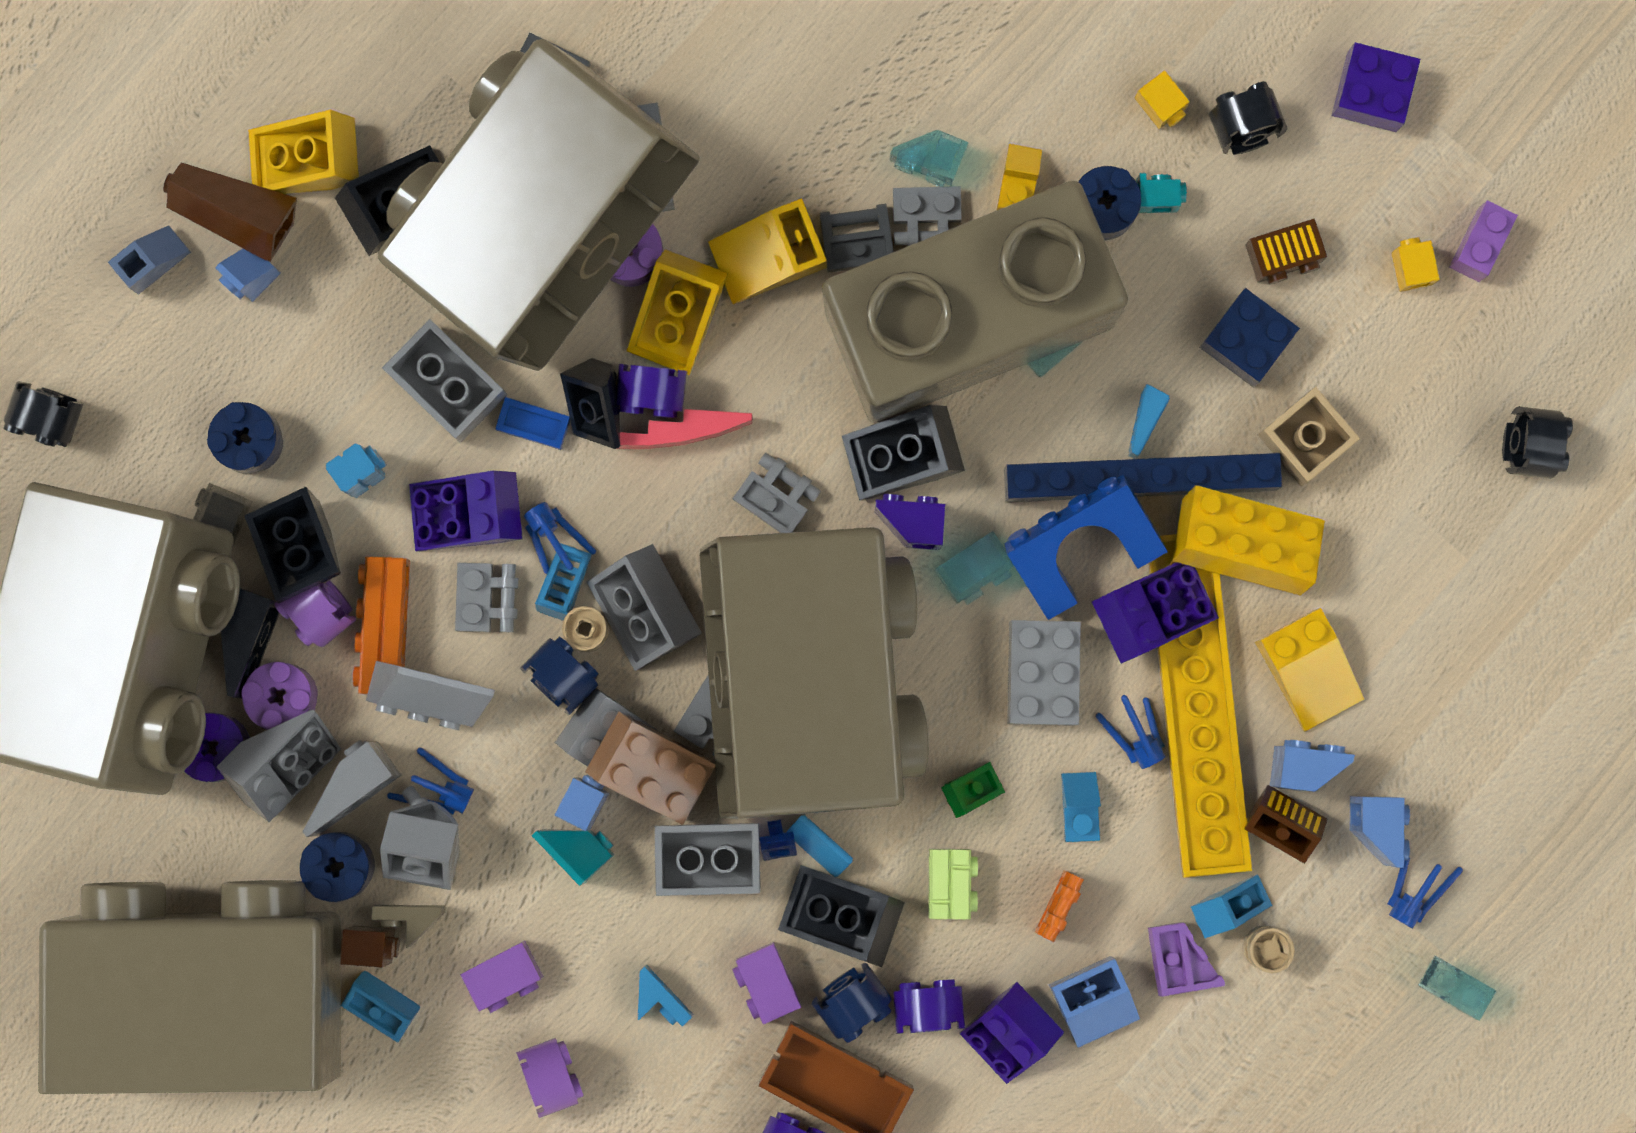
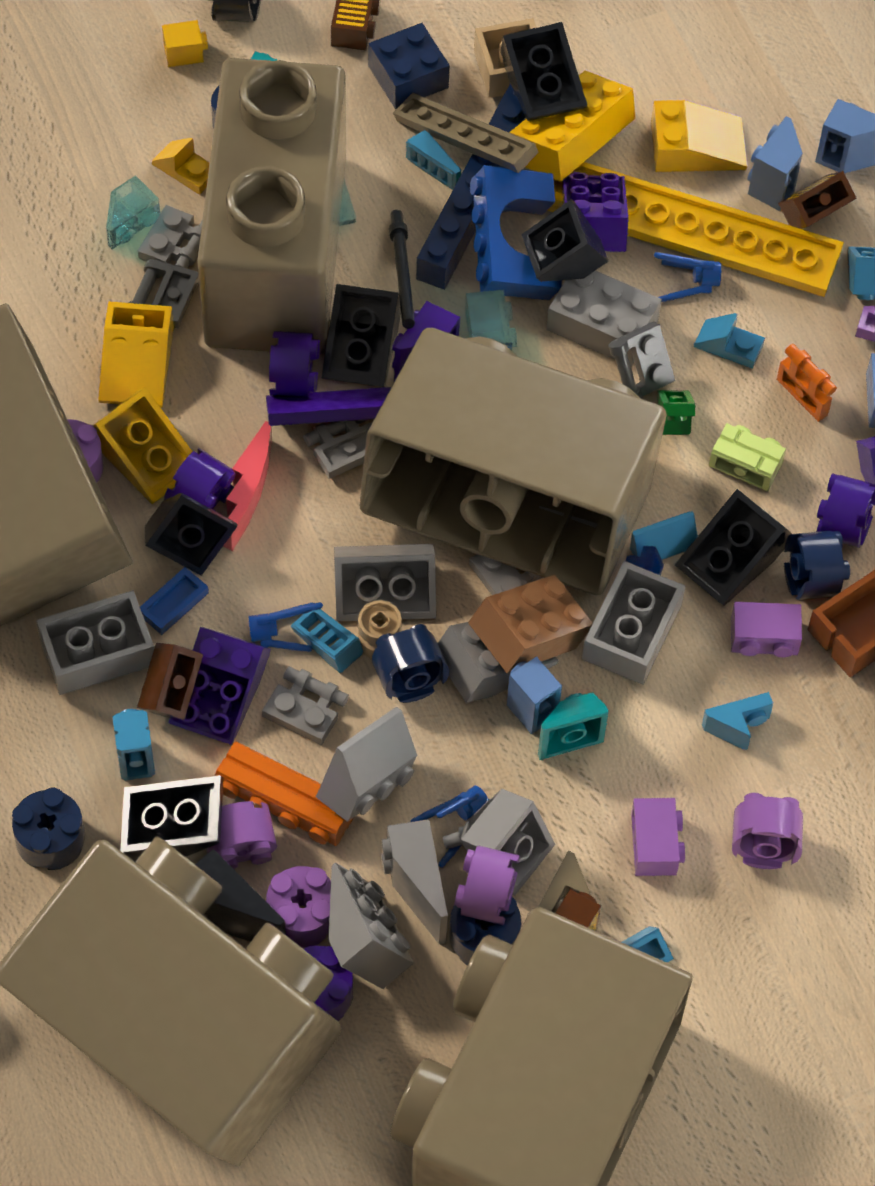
camera: 65 degrees left, 25 degrees down
(345, 859) = (488, 884): none -> medium lavender brick
(433, 469) = (170, 680): none -> reddish brown brick
(803, 464) = (326, 406): none -> dark purple tile
(827, 407) = (293, 364): none -> dark purple brick
(1008, 743) = (649, 357): none -> dark grey plate
(1037, 429) = (398, 234): none -> black bar
(1079, 605) = (564, 245): none -> black slope
(1176, 441) = (466, 132): none -> dark tan plate
(1276, 488) = (542, 71): none -> black slope

